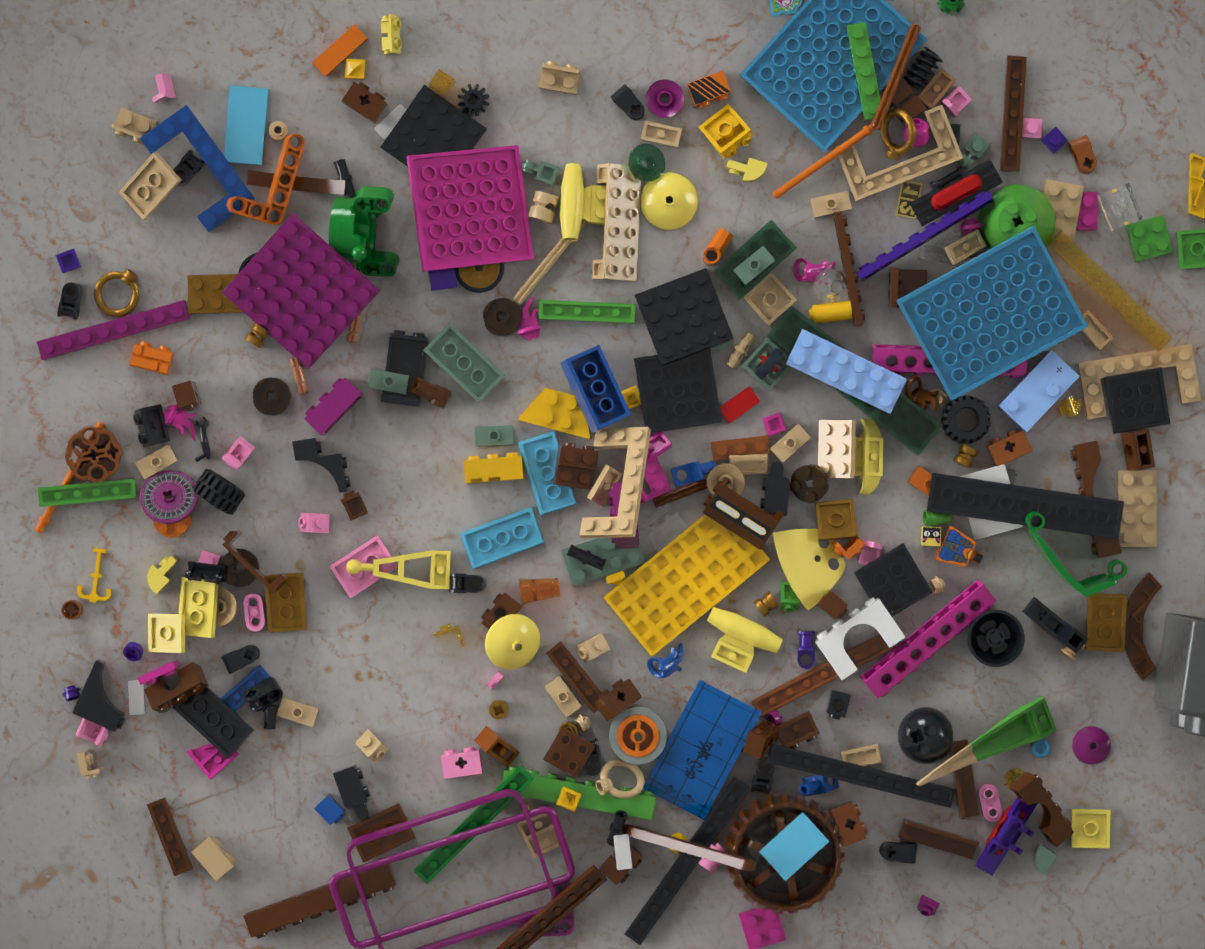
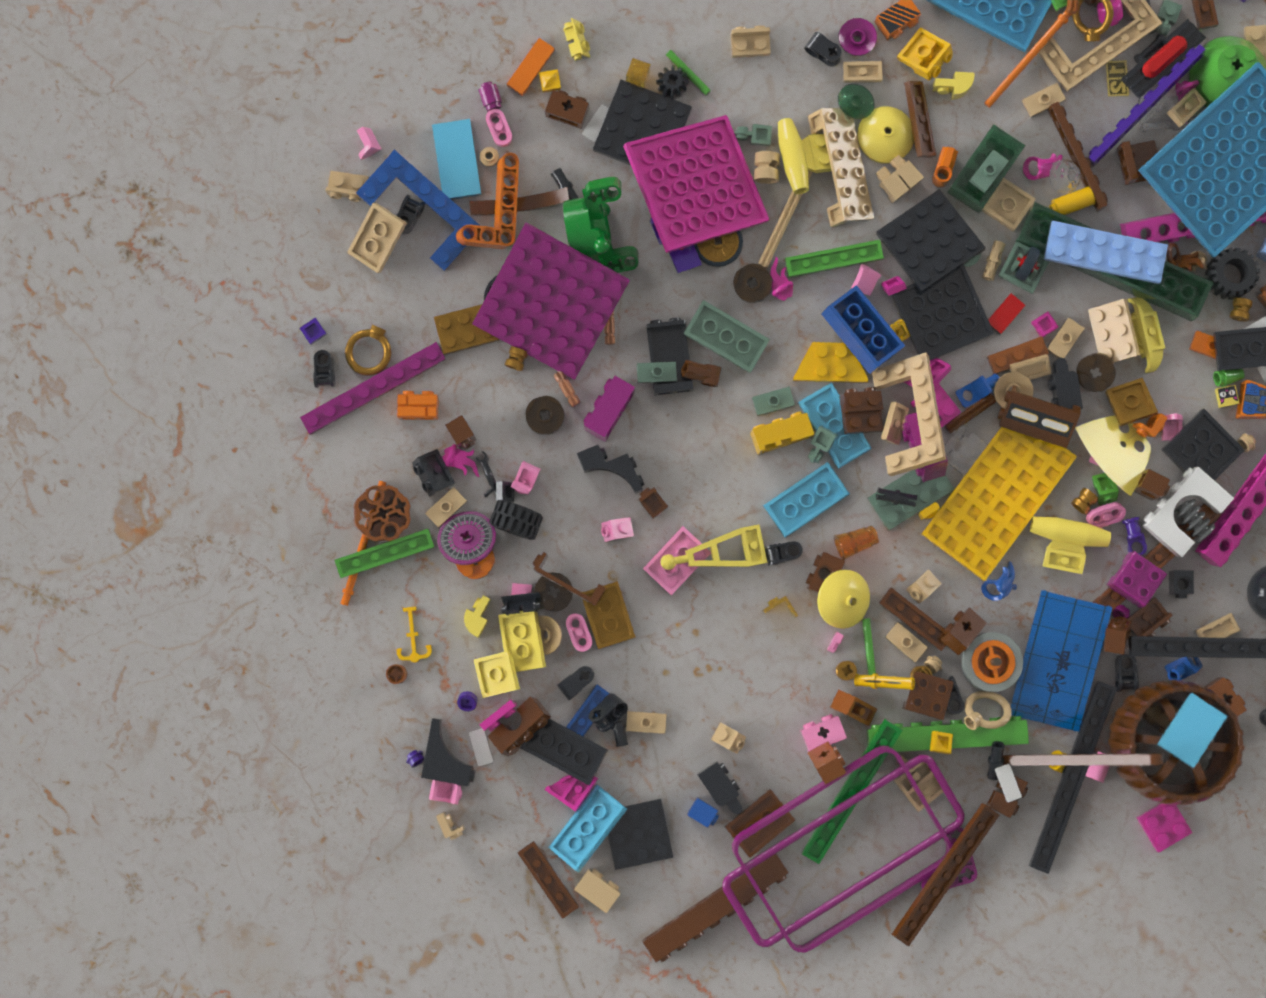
camera: 15 degrees left, 5 degrees down
(214, 461) = (504, 491): none -> black plate
(218, 798) = (587, 828): none -> medium azure tile
(264, 814) = (640, 836): none -> black plate
(293, 71) = (490, 96): none -> magenta brick
(295, 104) = (499, 128): none -> bright pink plate
(455, 792) = (827, 762): none -> dark orange brick
(492, 94) = (690, 74): none -> bright green piece
(526, 693) = (869, 646): none -> bright green piece
(530, 729) = (906, 683): none -> yellow pin
(531, 487) = (823, 441): none -> sand green plate
(612, 339) = (866, 279): none -> bright pink tile
(637, 352) = (893, 285): none -> dark pink tile
(661, 252) = (899, 181): none -> tan hips
(704, 195) = (920, 119): none -> reddish brown plate
(783, 622) = (1103, 515): none -> bright pink plate
(793, 691) = (1137, 579): none -> magenta piece
(864, 648) = (1194, 520): none -> dark grey piece

